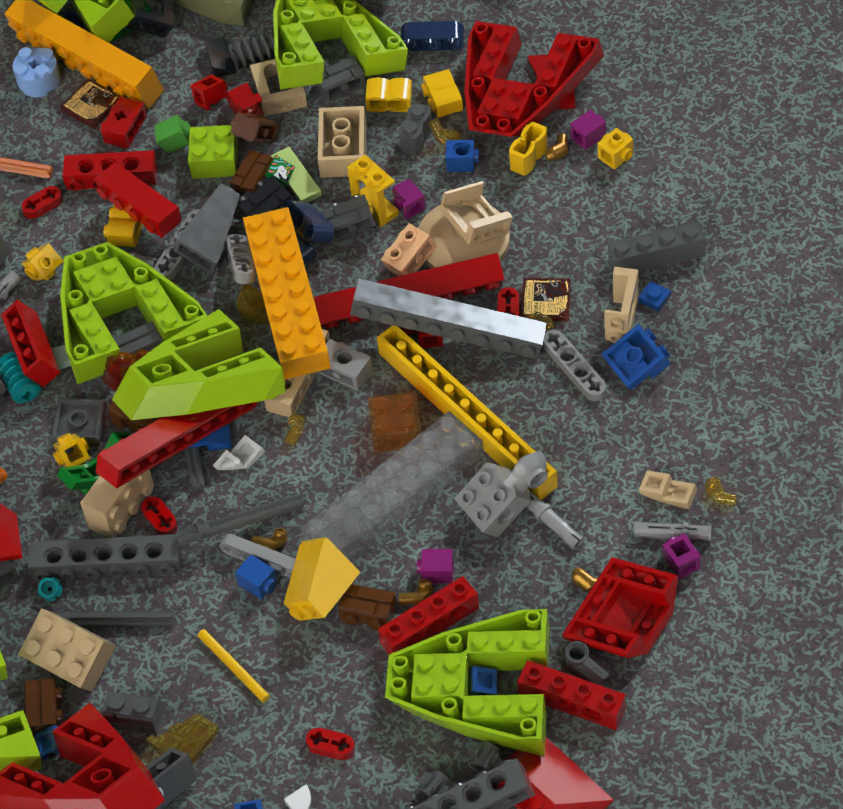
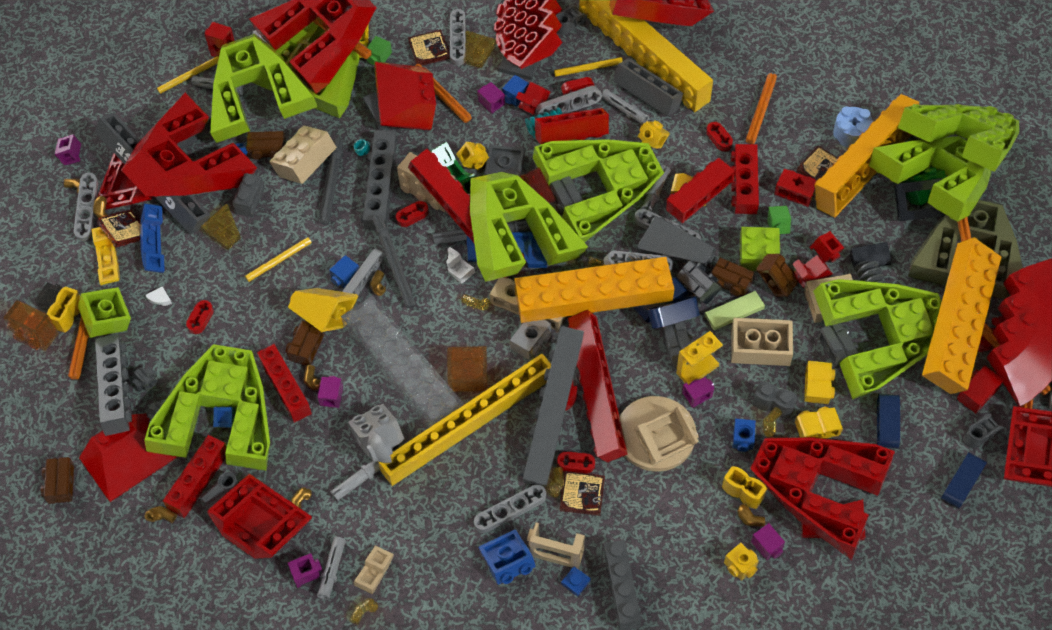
camera: 90 degrees right, 5 degrees up
(280, 169) = (731, 294): tile -> none
(408, 251) = (635, 386): light nougat brick -> none
(623, 733) = (160, 513): none -> pearl gold arm

